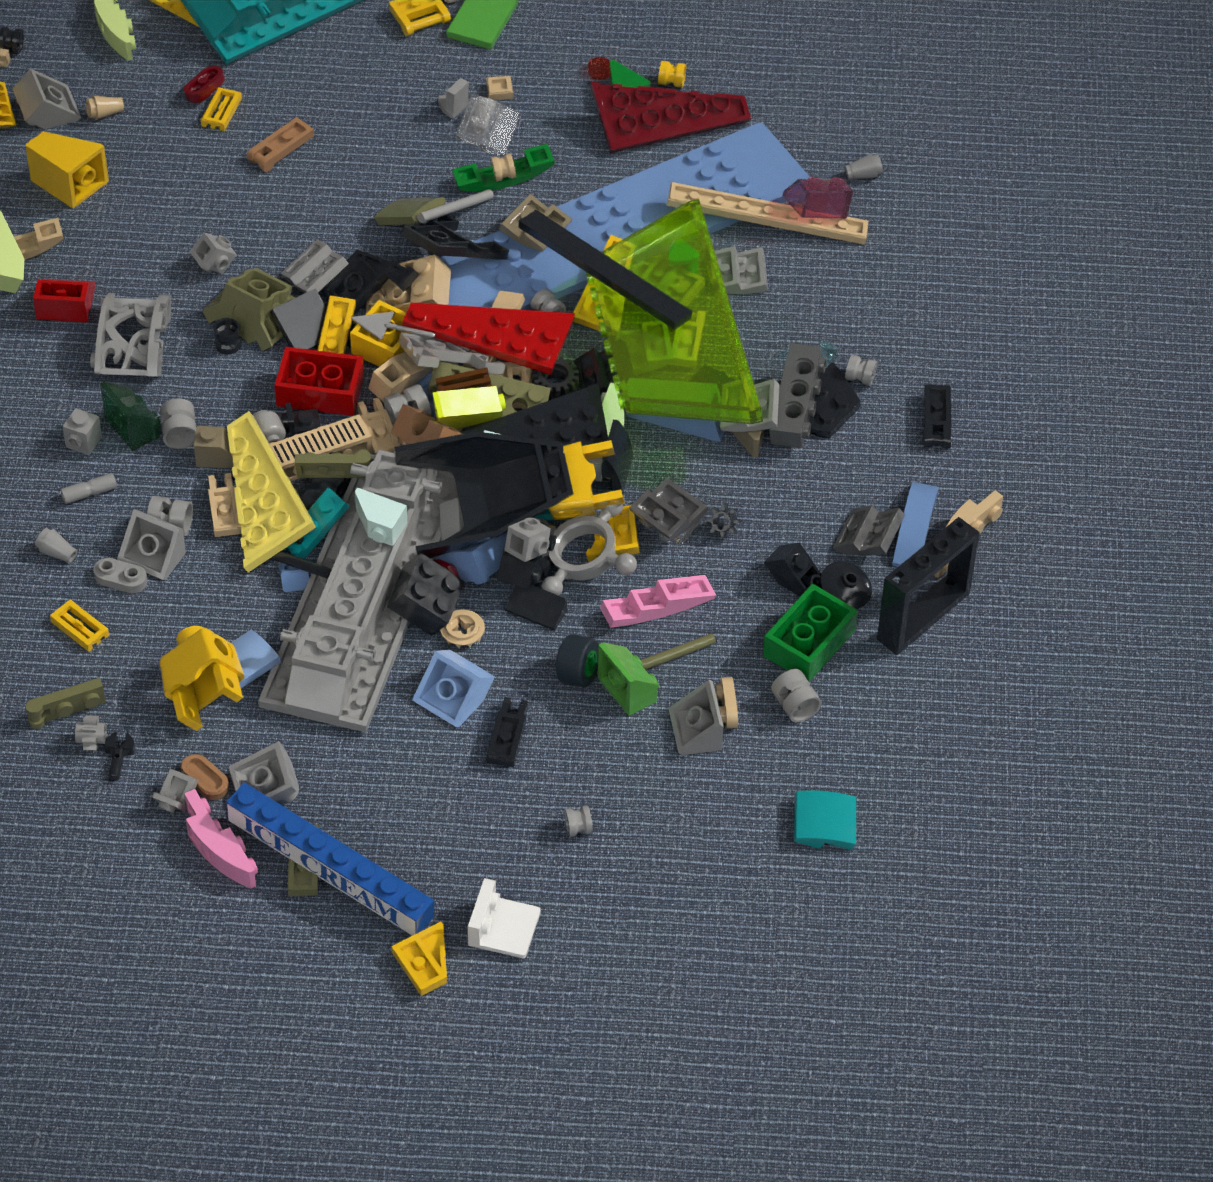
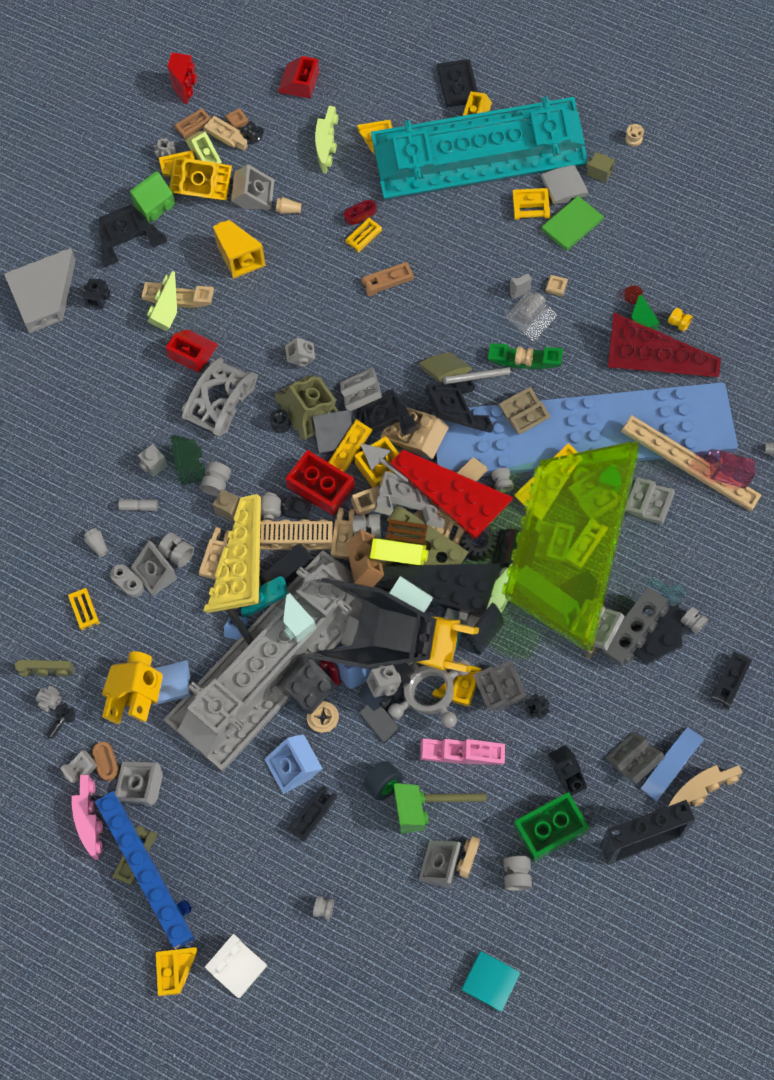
camera: 30 degrees right, 15 degrees up
(330, 465) = (292, 559): olive plate -> none
(605, 269) = (546, 476): black tile -> none
(847, 583) = (588, 794): black dish -> none

